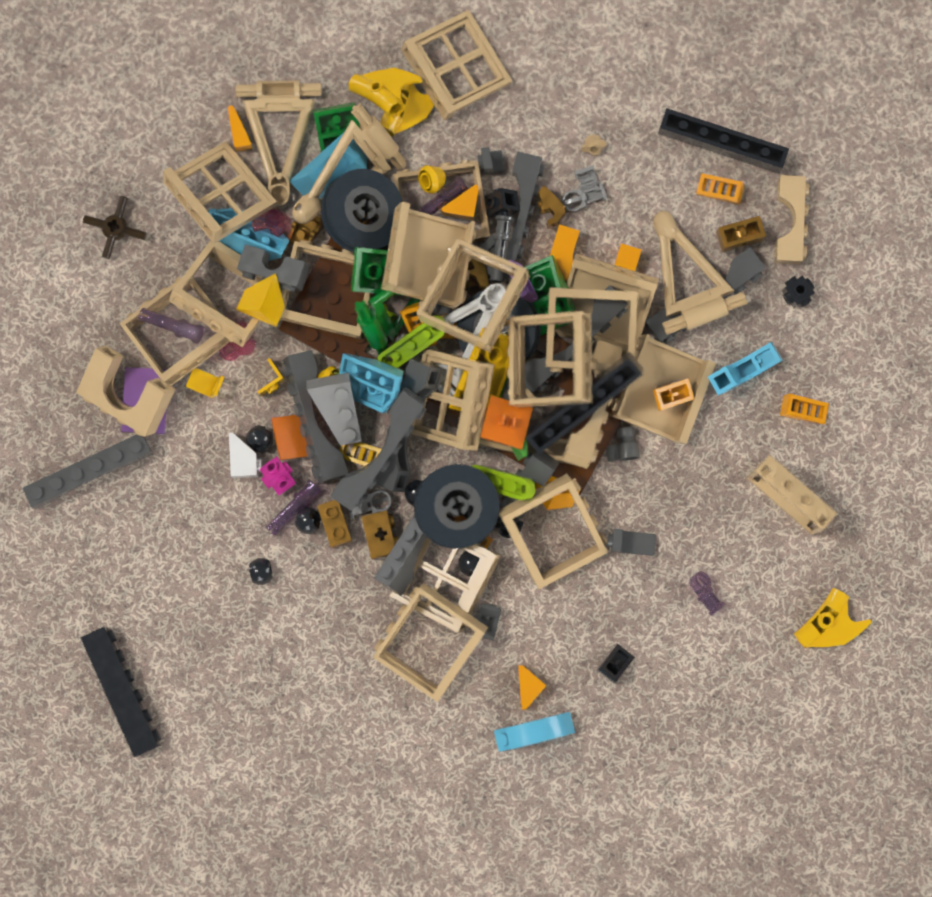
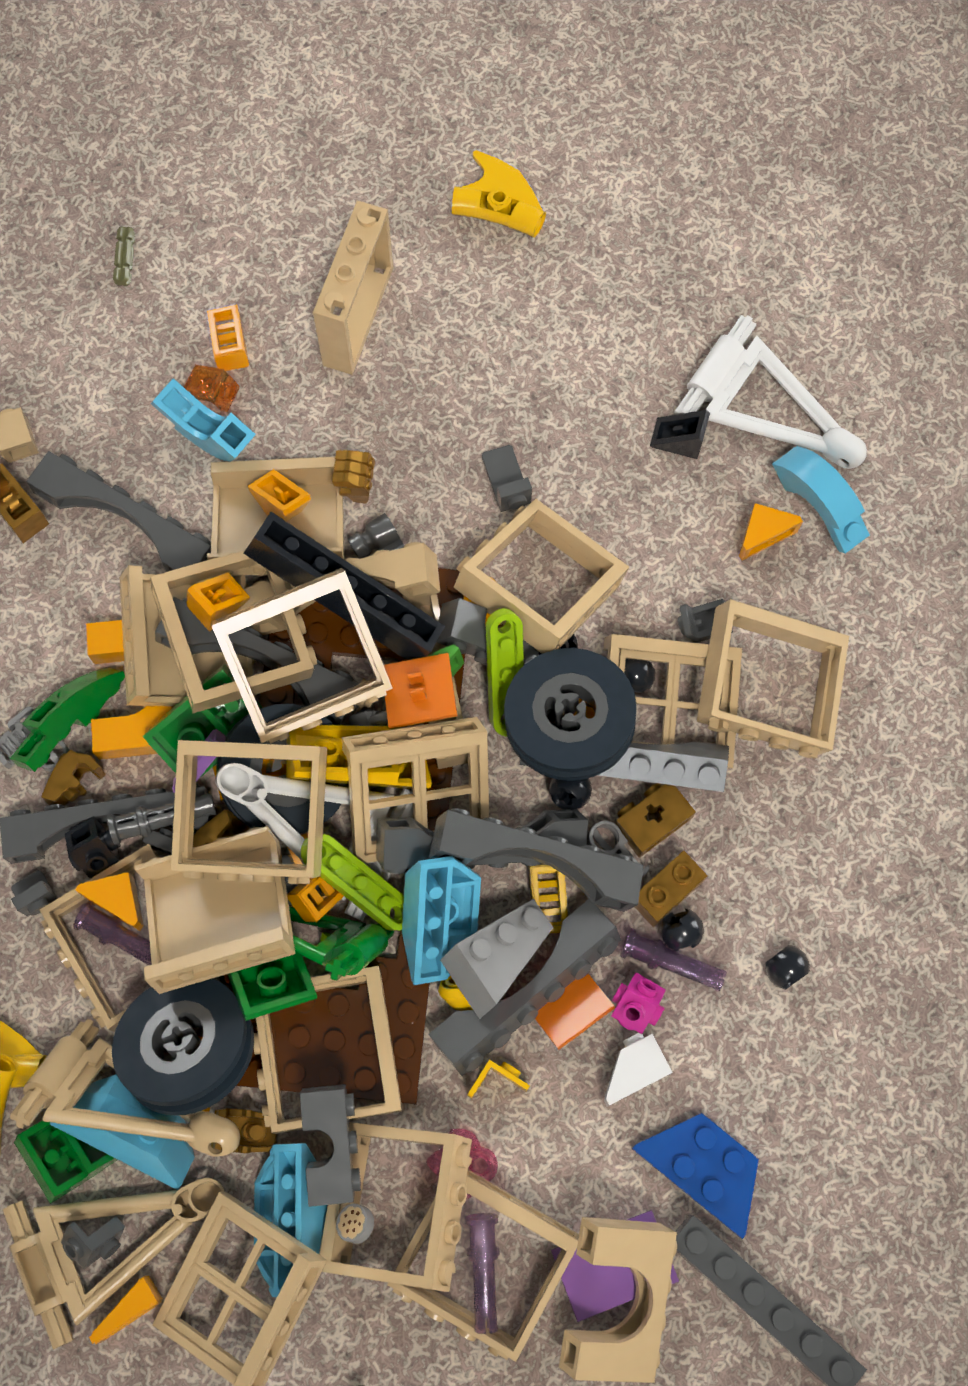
camera: 115 degrees left, 10 degrees down
(173, 474) = (706, 1167): none -> blue wing
(204, 383) = (547, 1179): yellow bracket -> none
(226, 266) = (355, 1223): none -> tile
(259, 438) = (594, 1056): black piece -> none
(263, 301) = (387, 1136): yellow slope -> none
(270, 220) = (253, 1189): clear pink plate -> none
(278, 119) = (90, 1248): none -> dark grey bracket
(431, 178) = (93, 963): yellow cone -> none
(594, 224) = (69, 705): none -> green slope
(607, 326) = (215, 598): none -> light orange slope
(644, 712) = (726, 371): none -> white piece
(669, 446) = (355, 472): none -> pearl gold hand
(702, 306) = (138, 507): tan piece -> none
(705, 592) = (524, 366): clear purple connector -> none
(772, 384) = (212, 386): none -> clear orange bracket
(795, 299) = (67, 400): black brick -> none
(890, 365) = (124, 256): none -> olive axle

